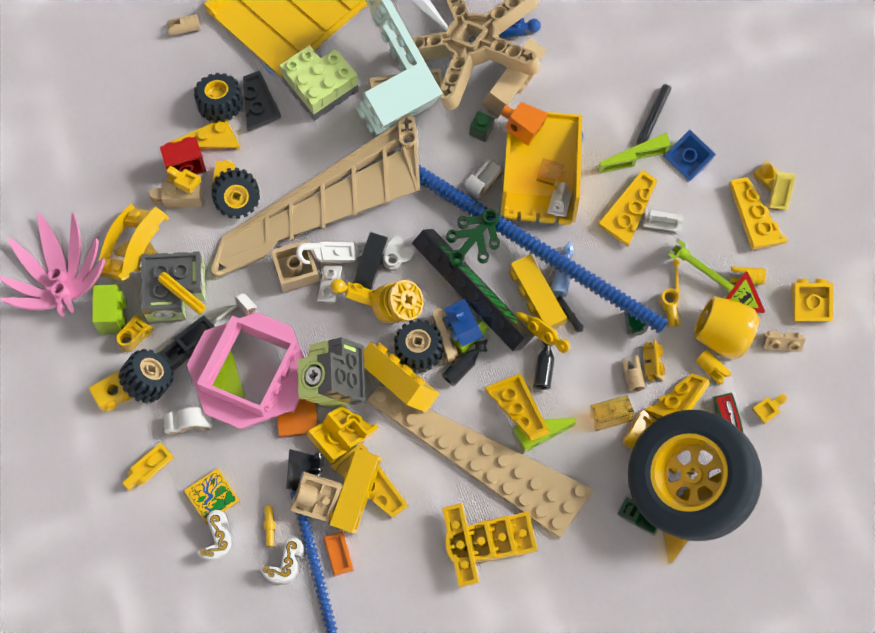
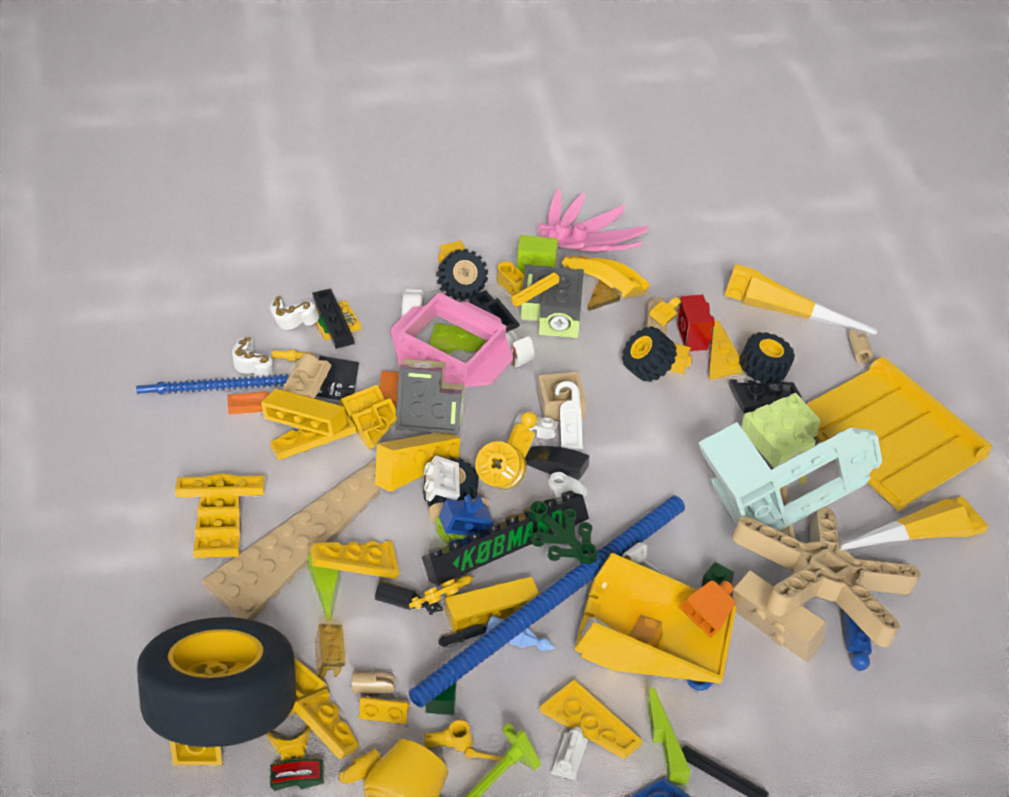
camera: 100 degrees right, 25 degrees down
(130, 104) = (762, 292): none -> yellow plate
(148, 466) = (376, 279): yellow hinge -> none
(215, 495) = (333, 318): none -> black tile
(370, 187) = (640, 458): tan wing -> none
(432, 345) = (442, 478): none -> white bracket
(464, 363) = (421, 524): black wheel -> none

